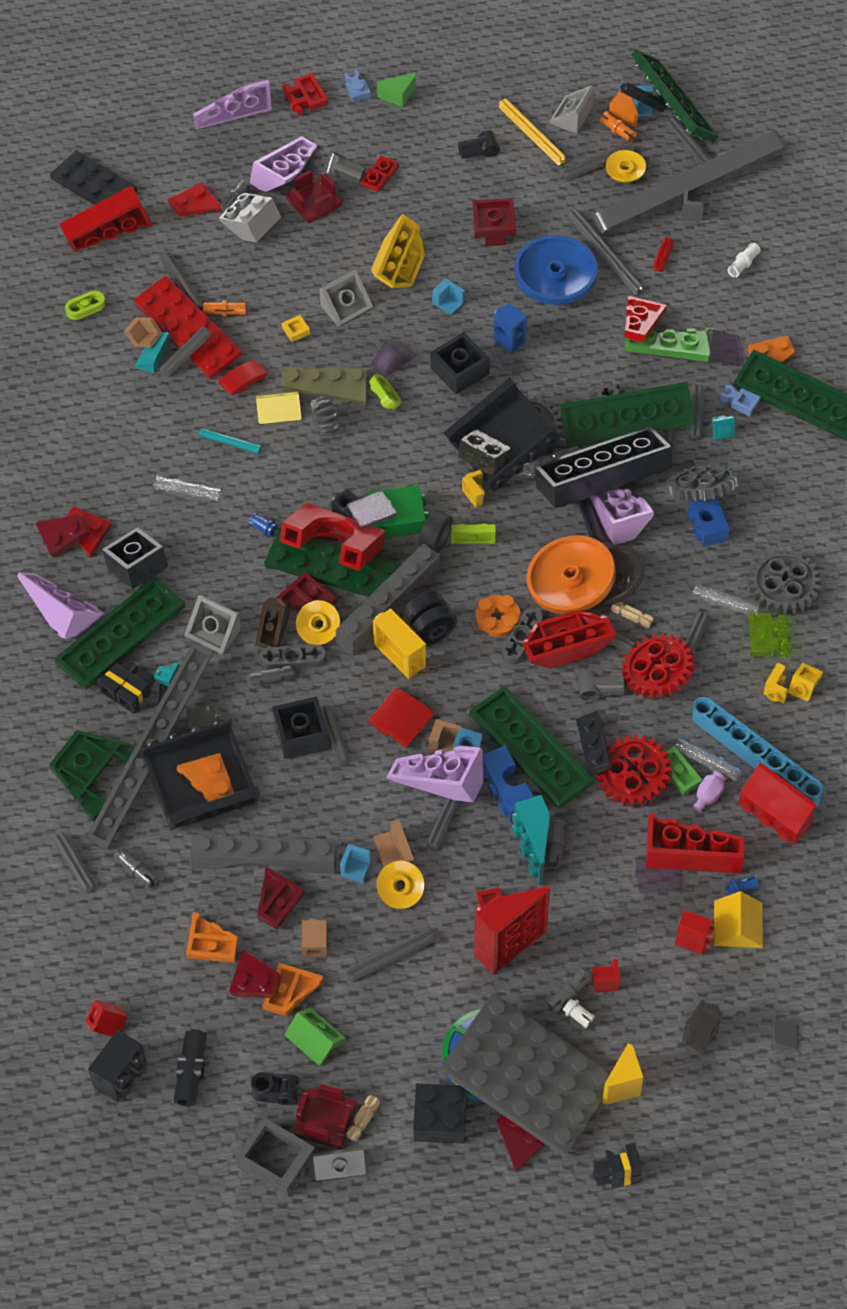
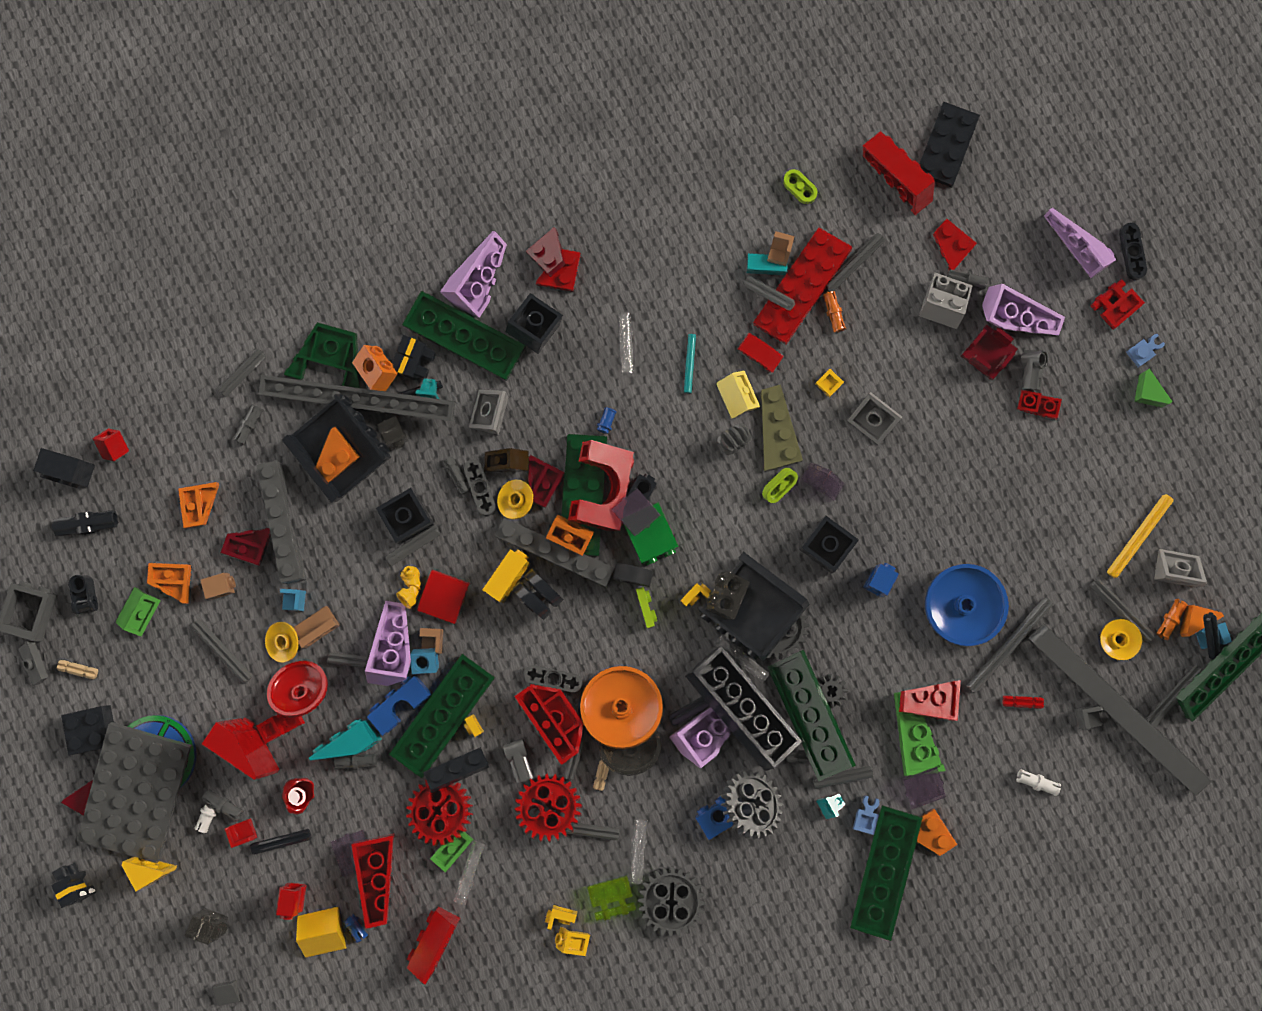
camera: 80 degrees right, 25 degrees up
(138, 712) = (374, 368): none -> orange brick
(254, 978) = (170, 549): dark red wing -> none
(272, 77) = (1141, 264): none -> black beam
(324, 1116) = (69, 639): dark red panel -> none
(375, 571) = (569, 535): none -> orange brick
(388, 748) = (410, 576): none -> yellow arm
(400, 255) = (938, 452): yellow wedge -> none
(448, 296) = (906, 512): dark azure panel -> none
(452, 869) = (291, 683): none -> red dish
(484, 144) = (1106, 494): black piece -> none
(494, 220) = (1010, 530): dark red panel -> none
(497, 604) = (564, 662): orange plate -> none
(551, 717) = (473, 726): none -> yellow plate
(576, 906) = (297, 794): none -> red hair
(626, 941) = (280, 841): none -> black axle
(709, 790) = (440, 880): lavender plant -> none
(752, 742) = (479, 921): dark azure beam -> none

